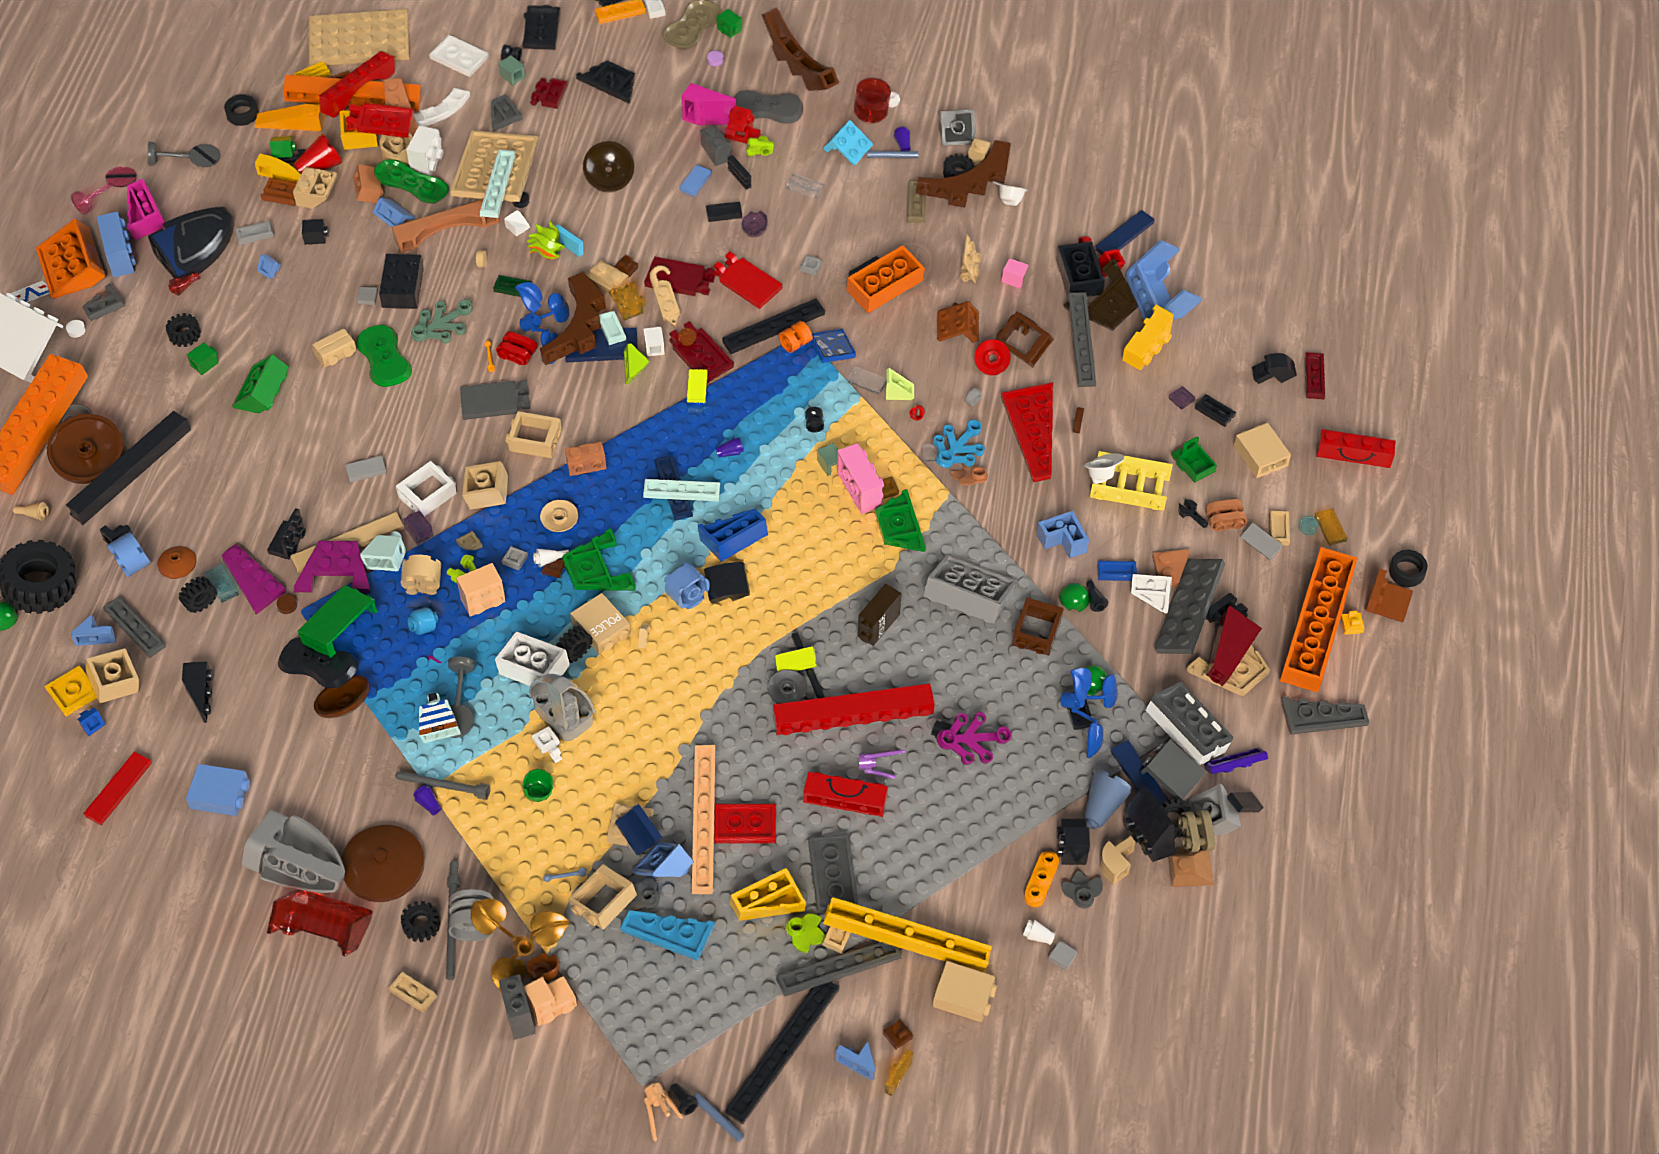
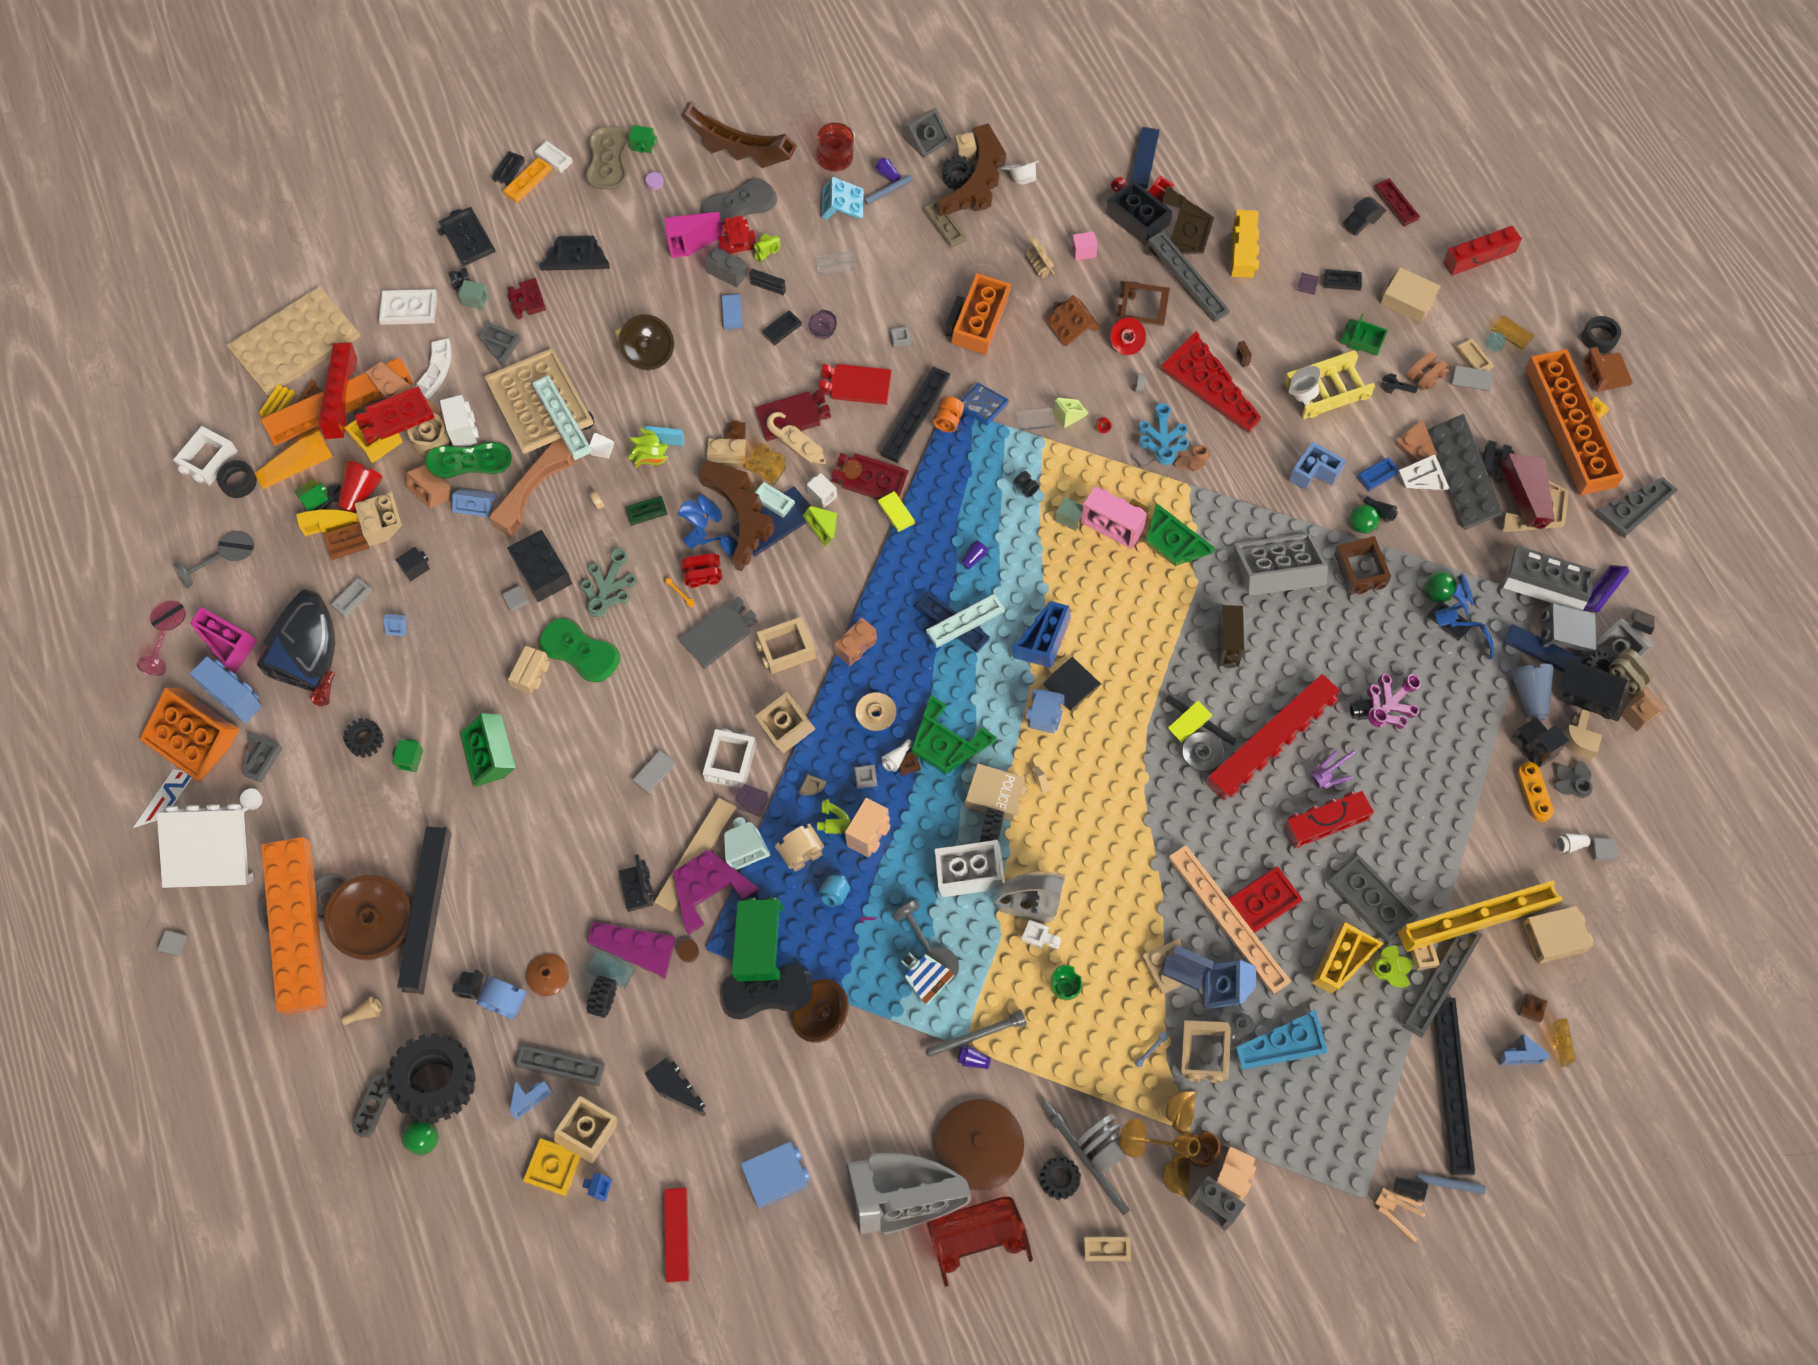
camera: 30 degrees left, 10 degrees up
(228, 73) = (209, 473): none -> white window
(1147, 283) = (1197, 190): medium blue windscreen -> none

